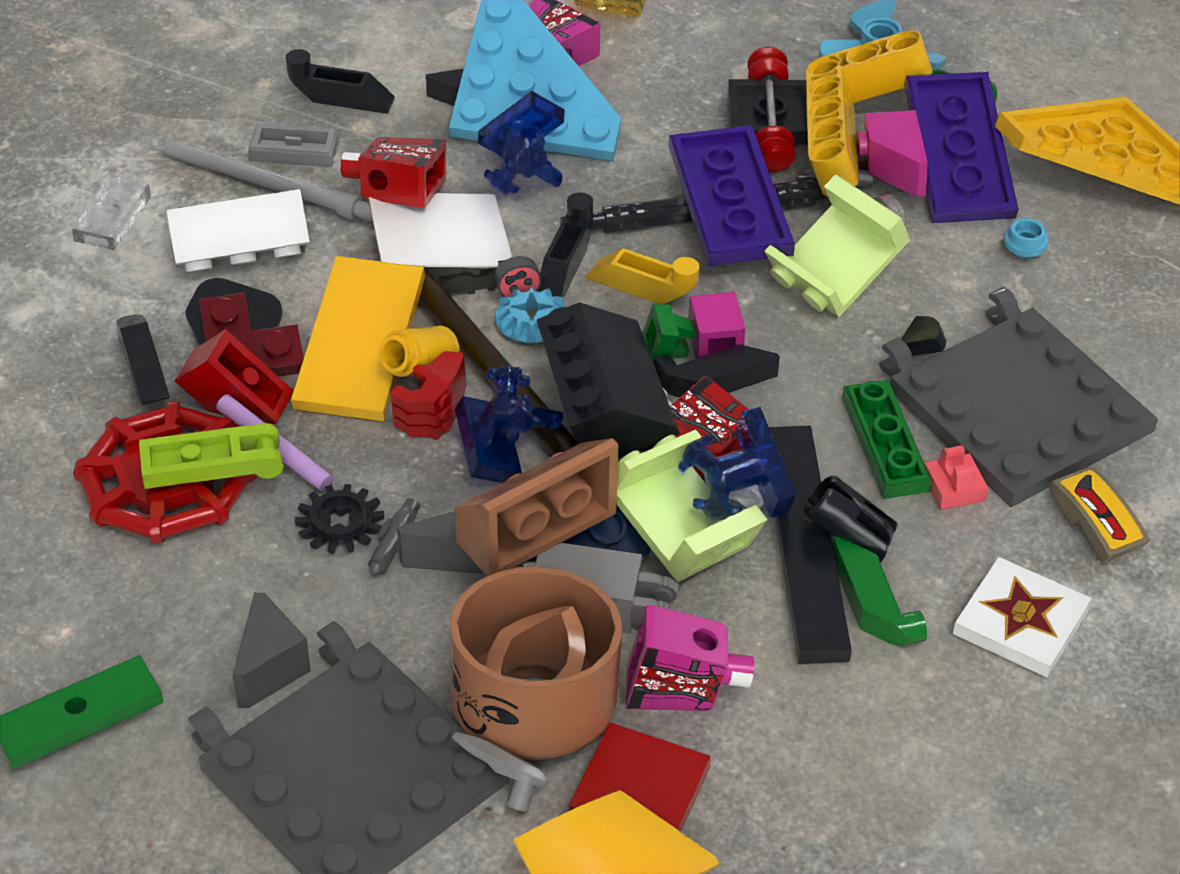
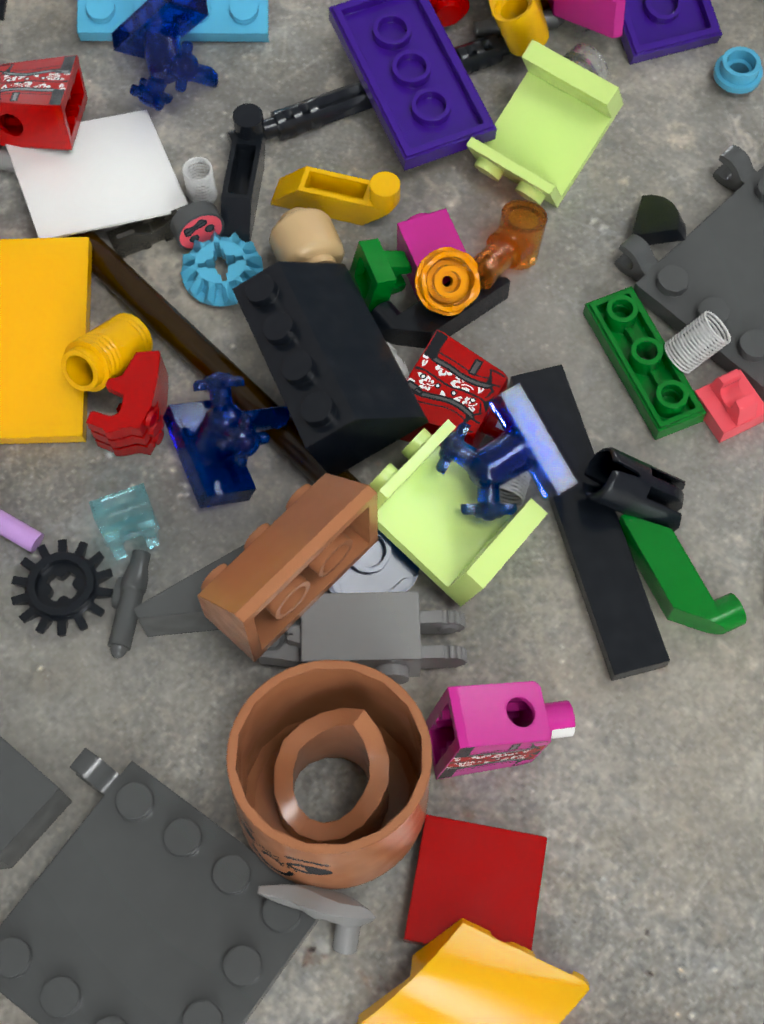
camera: 10 degrees left, 20 degrees up
(406, 471) = (125, 517): none -> clear light blue tile
(519, 243) = (192, 183): none -> white piece
(611, 293) = (306, 237): none -> tan head
(726, 326) = (464, 281): none -> light orange plate
(788, 331) = (514, 242): none -> clear orange pin
(932, 423) = (708, 335): none -> white piece

